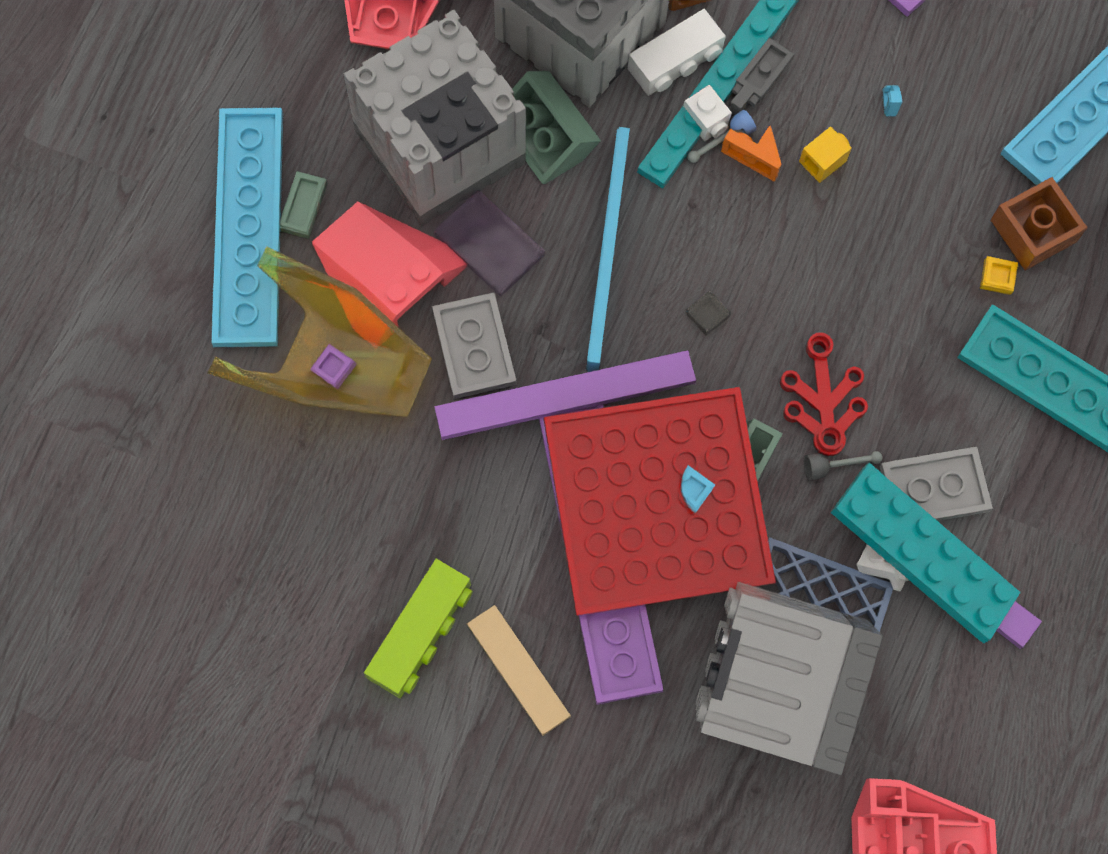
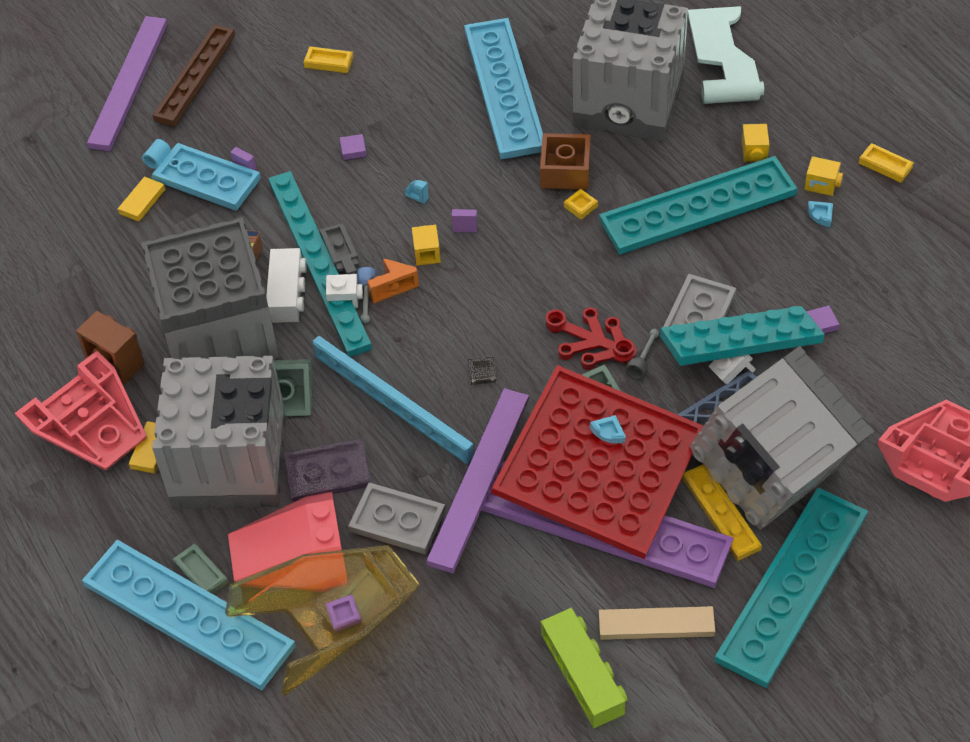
camera: 50 degrees left, 20 degrees down
(646, 783) = (791, 587): none -> teal plate
(690, 663) = (721, 512): none -> yellow tile
(885, 171) = (464, 220): none -> medium lavender tile

